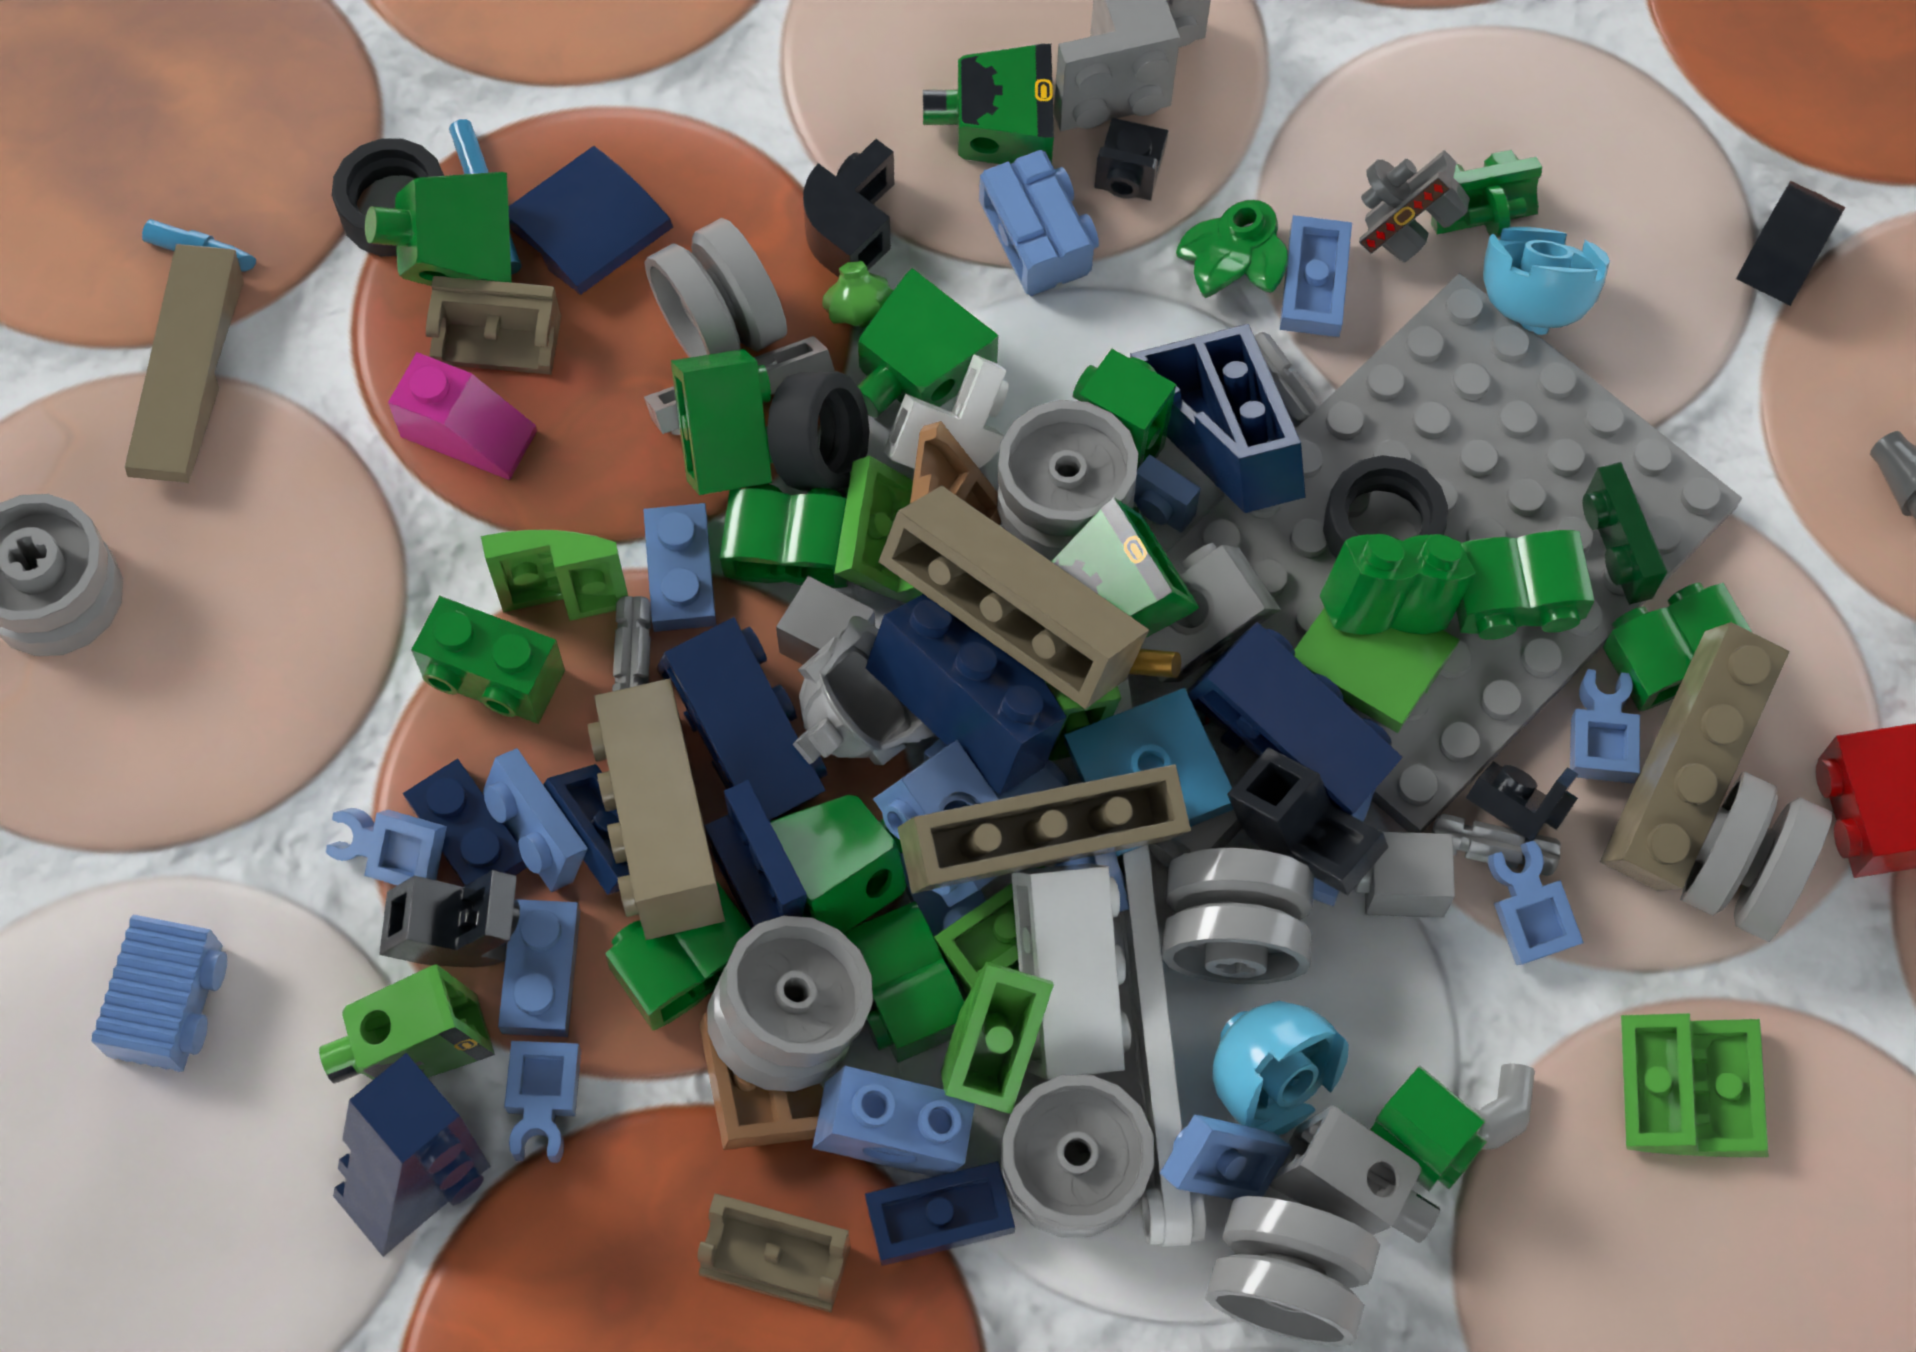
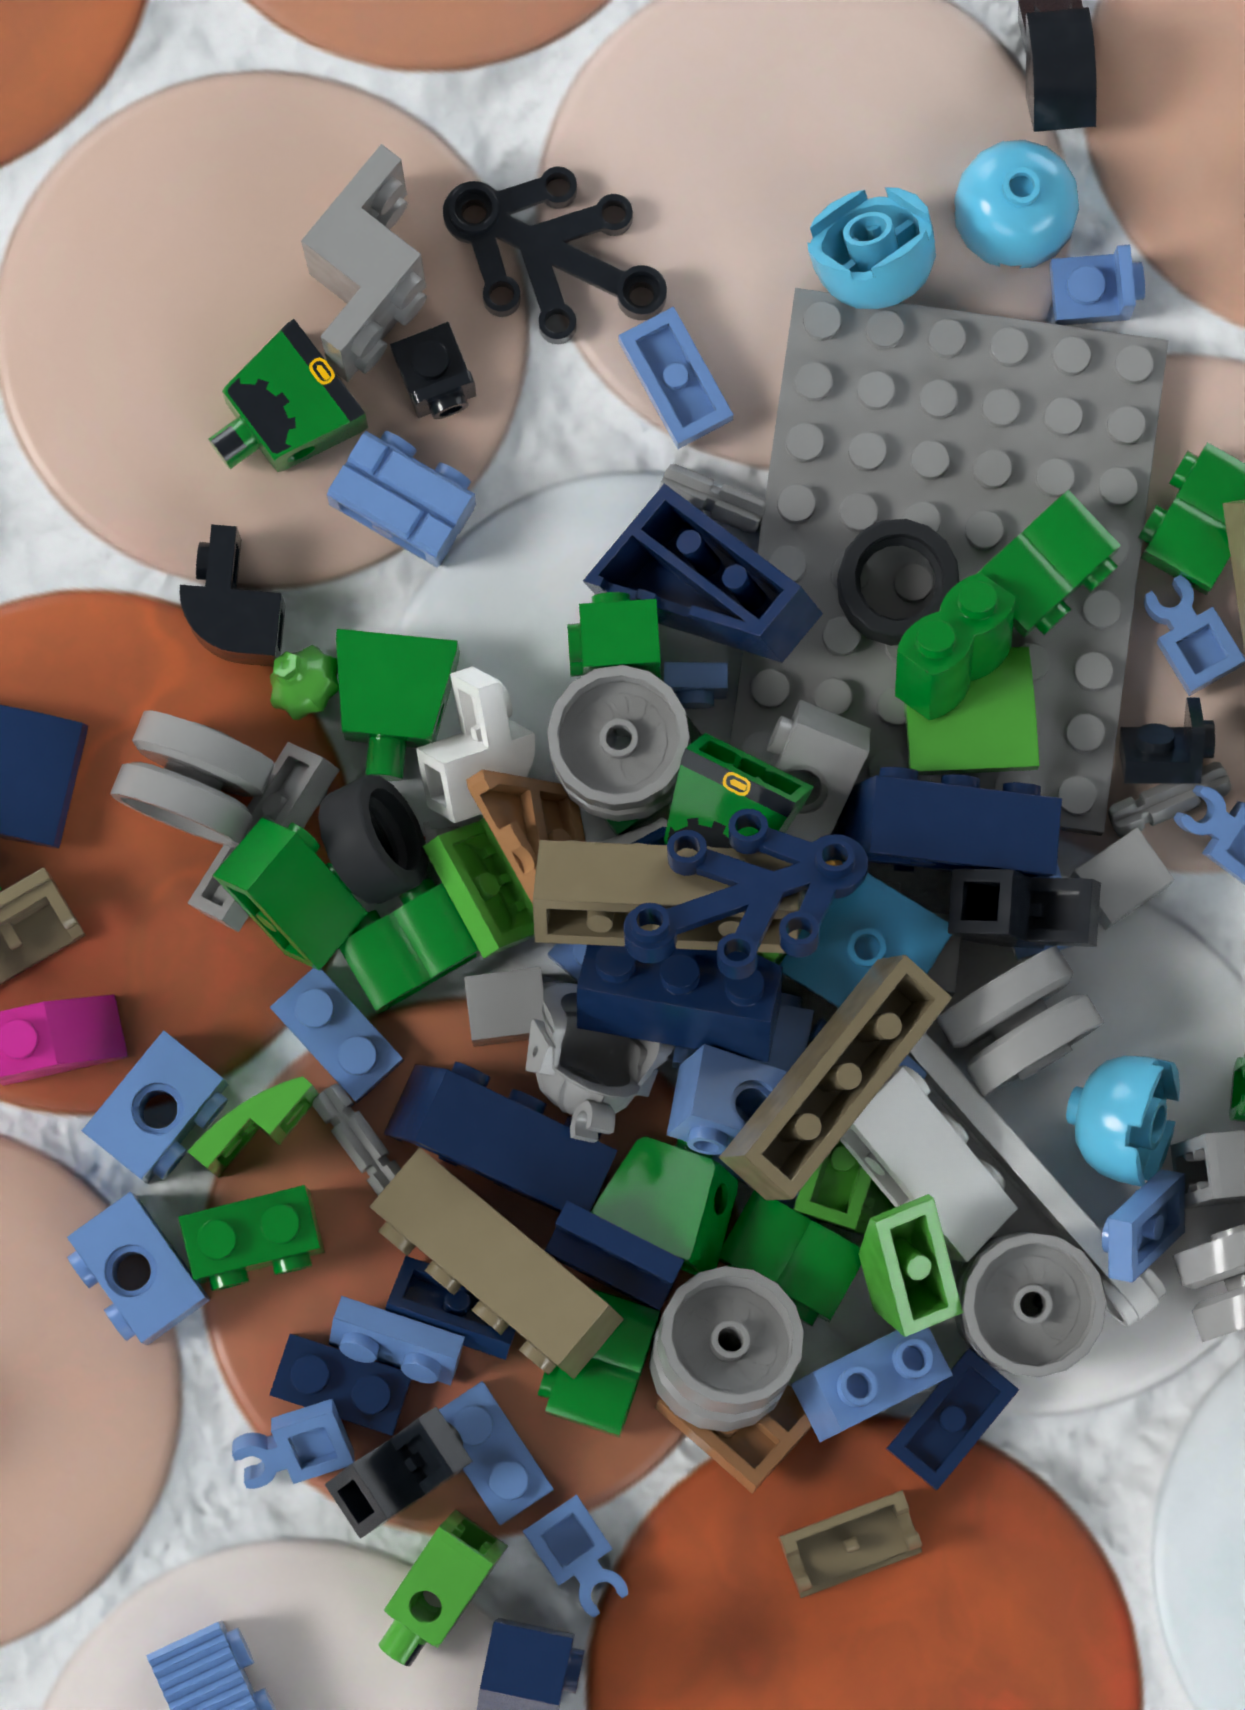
camera: 35 degrees left, 15 degrees up
(374, 591) = (126, 1231): none -> medium blue brick
(464, 507) = (162, 1070): none -> medium blue brick
(1151, 647) = (750, 890): none -> dark blue plant
(1228, 250) = (590, 408): green plate -> none
(1287, 130) = (546, 246): none -> black plant
(1401, 196) = (710, 258): dark grey hips -> none
(1497, 193) = (771, 198): green hips -> none
(1629, 544) = (1120, 473): dark green plate -> none
(1684, 325) = (1016, 204): none -> medium azure cylinder
(1708, 425) = (1096, 287): none -> medium blue bracket

